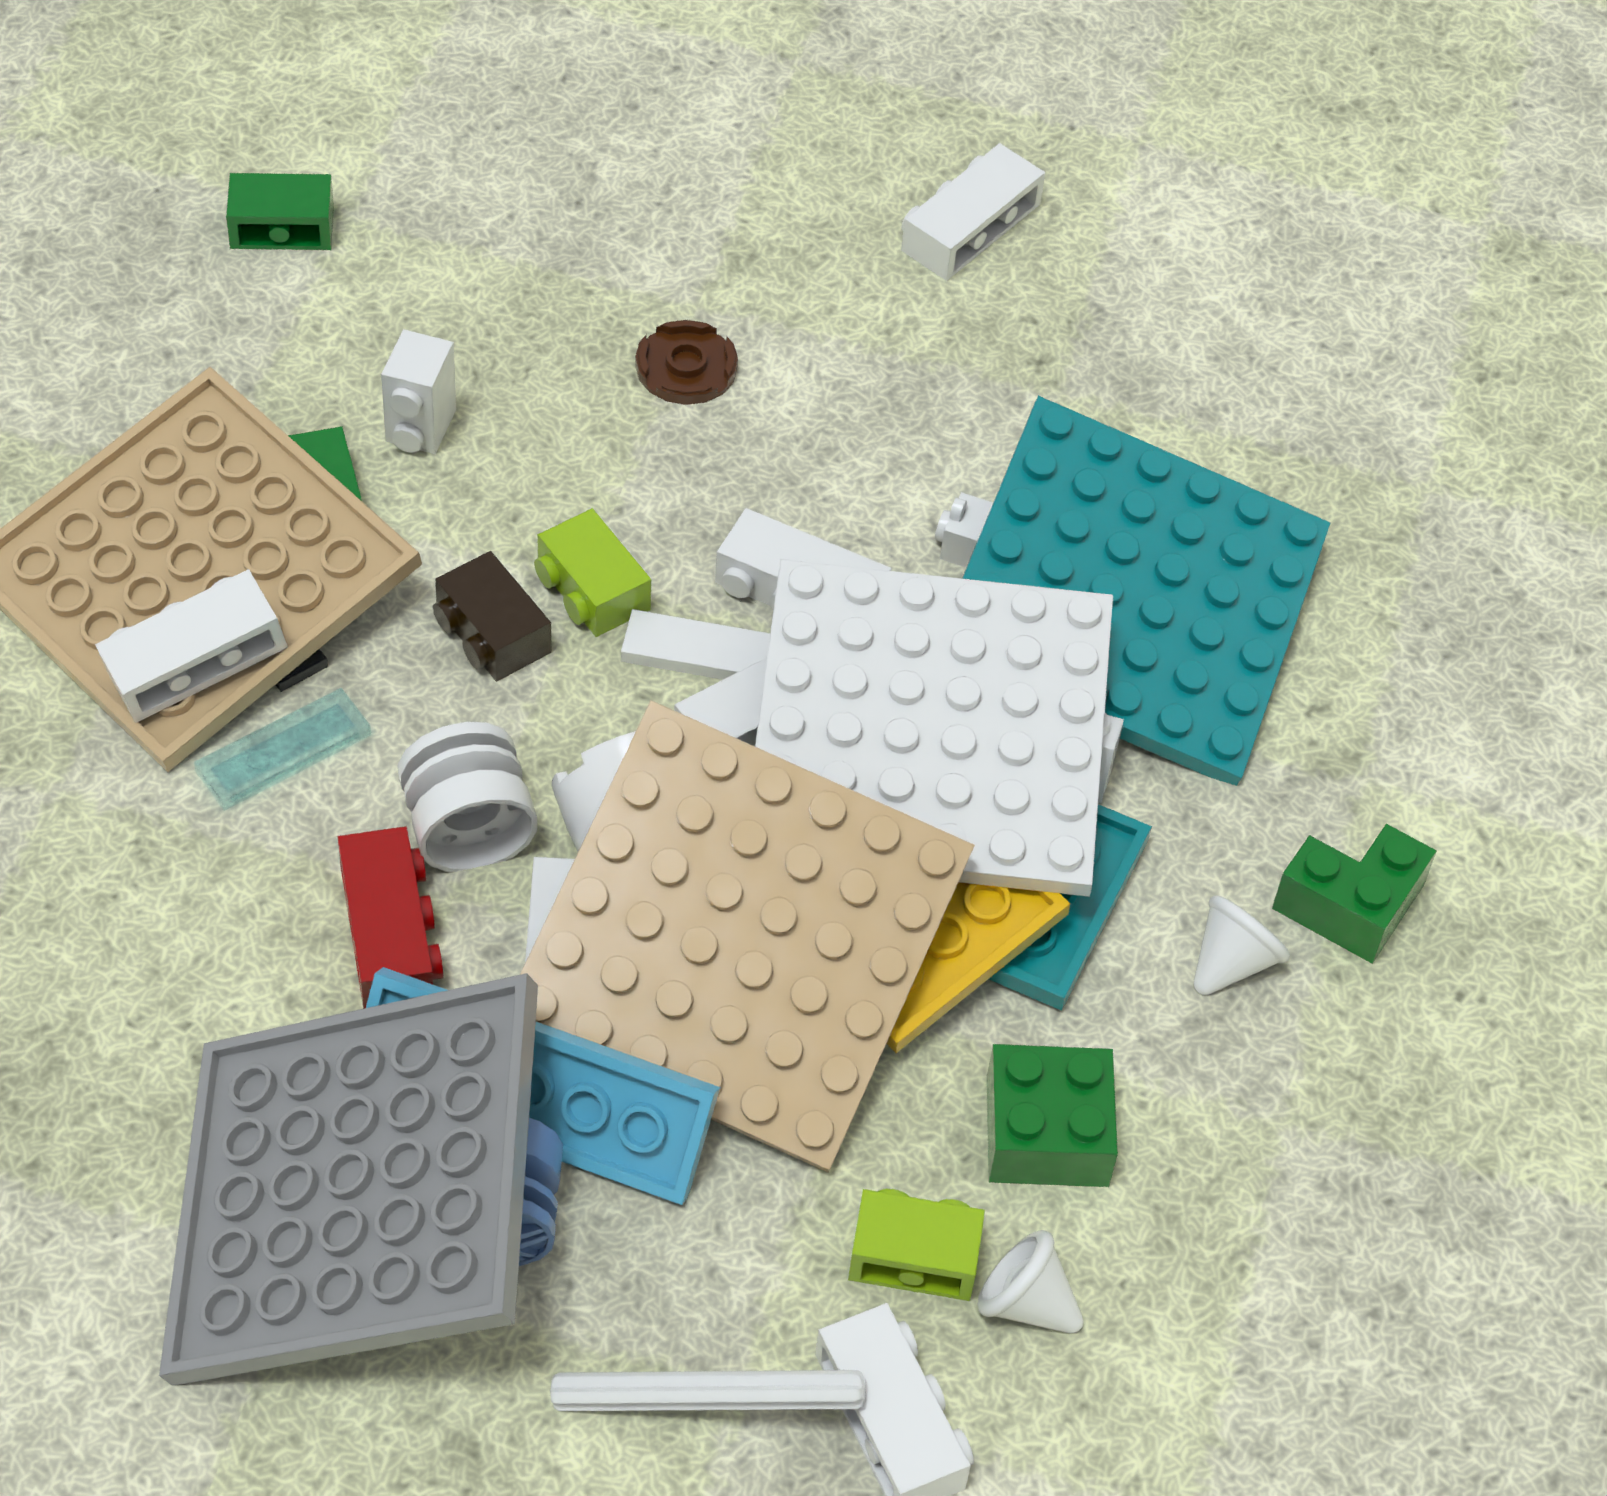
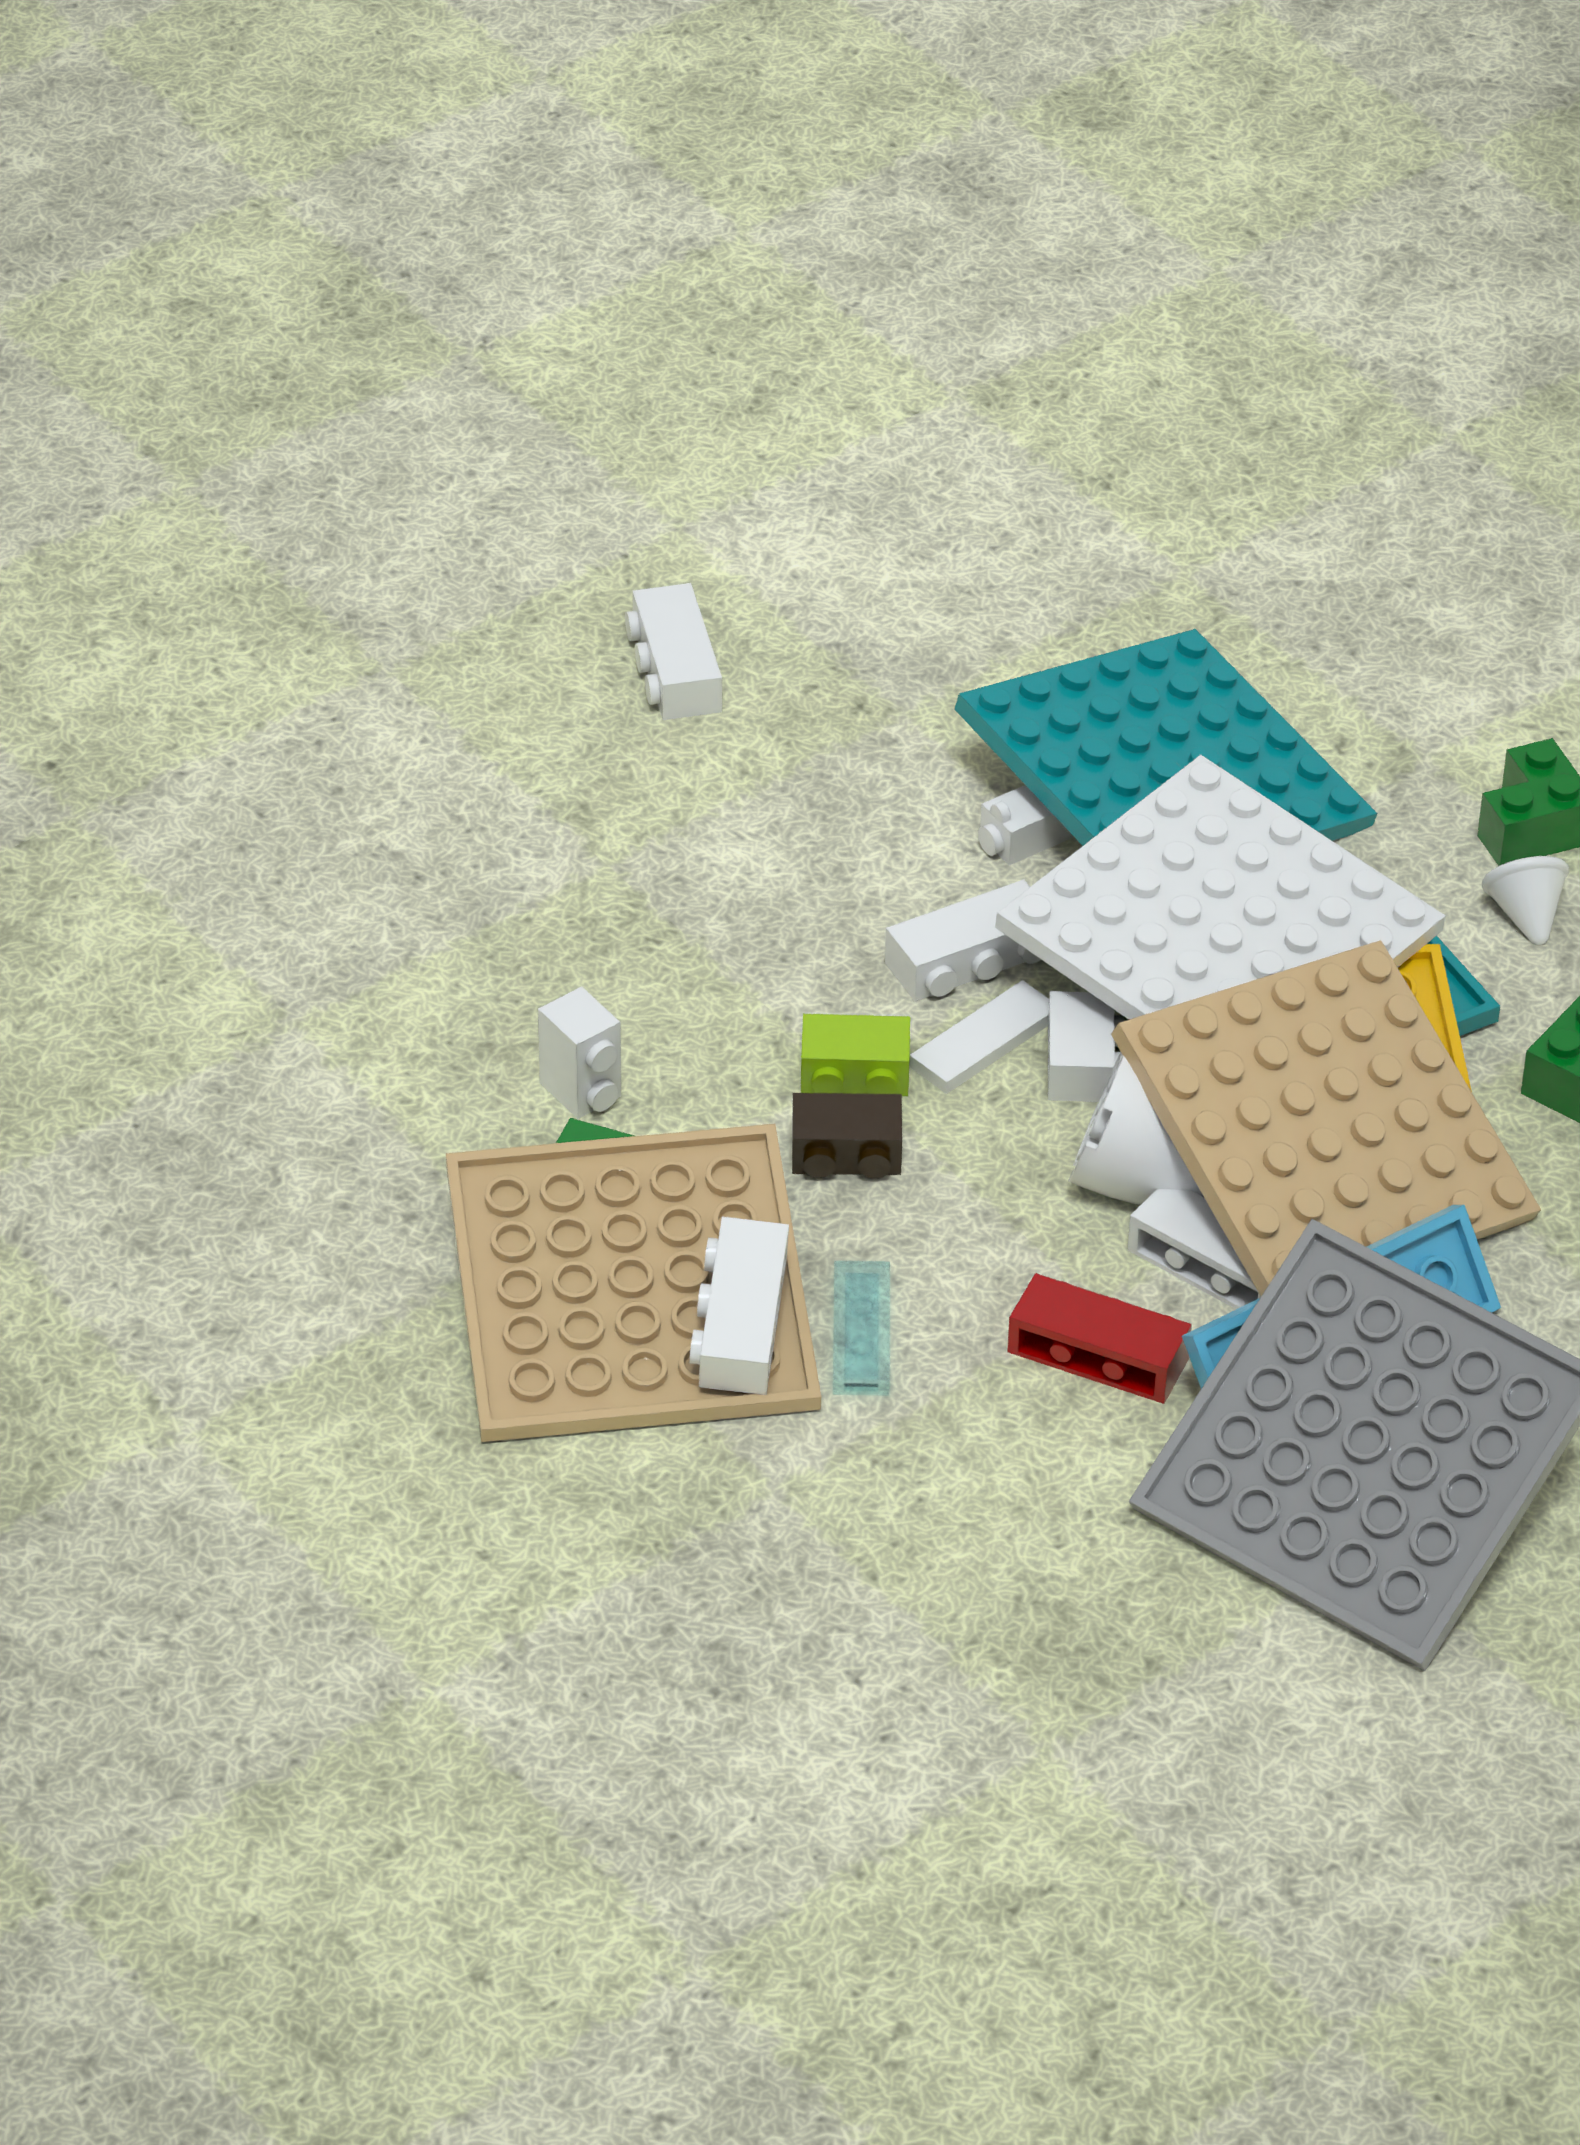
camera: 50 degrees left, 10 degrees down
(280, 211) = (261, 1050): green brick -> none
(467, 796) = (1025, 1221): white wheel -> none
(690, 375) = (668, 912): reddish brown tile -> none

